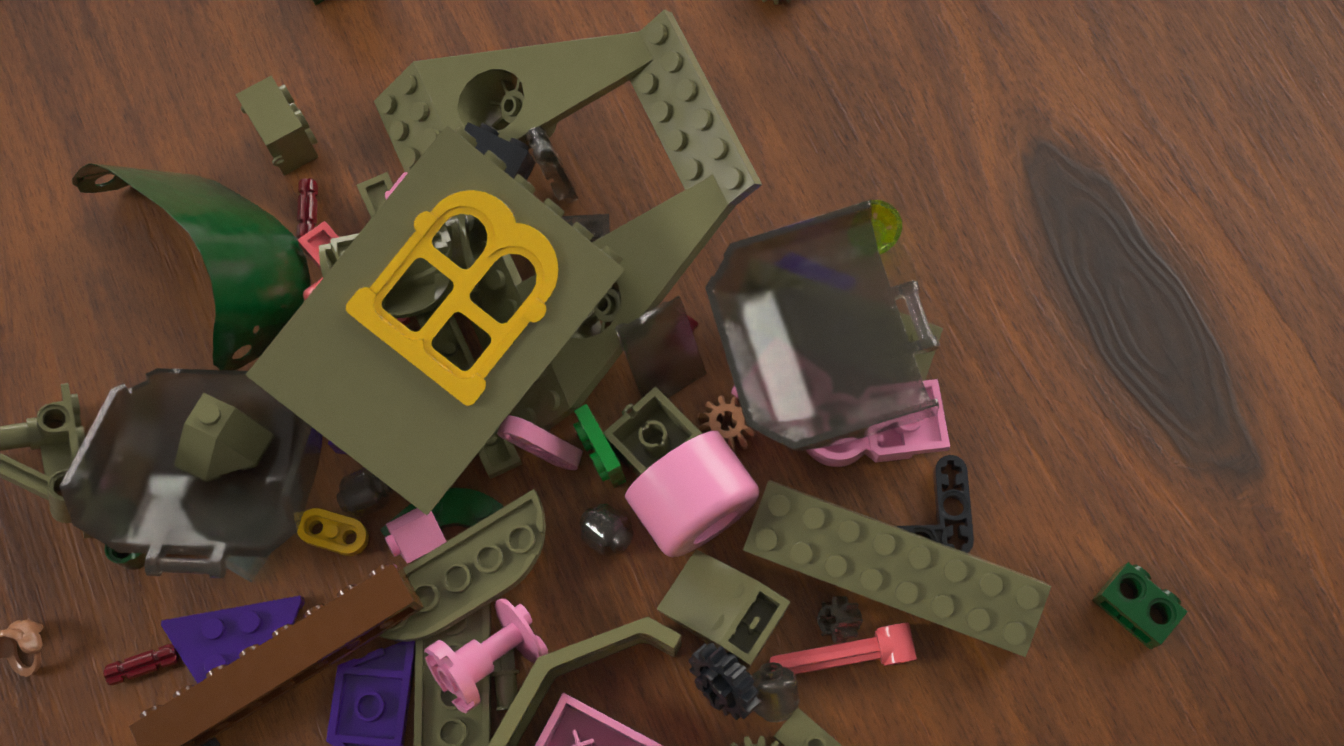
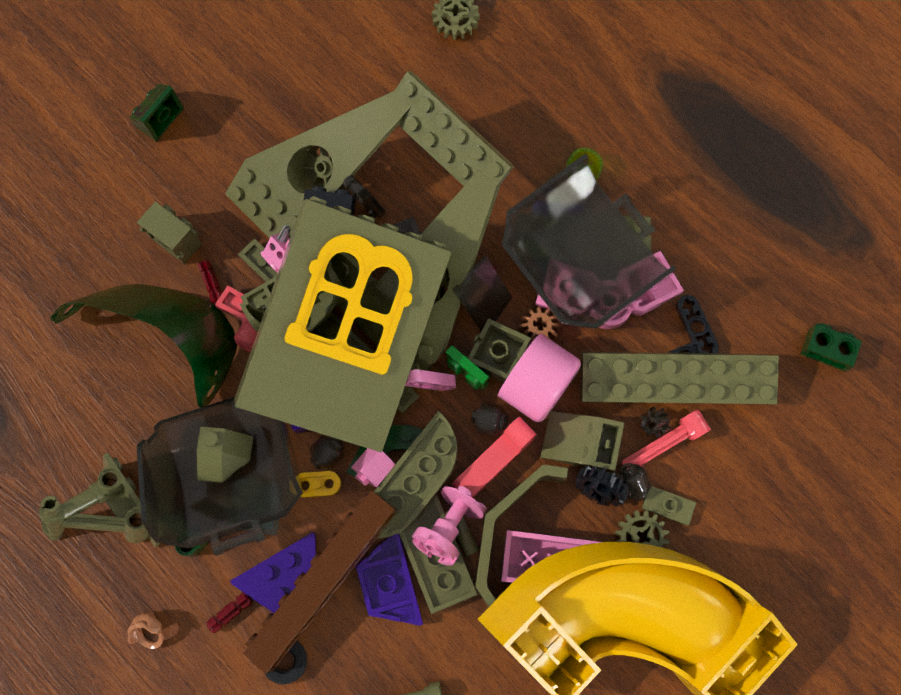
camera: 20 degrees left, 5 degrees up
(591, 587) = (496, 457): none -> coral beam

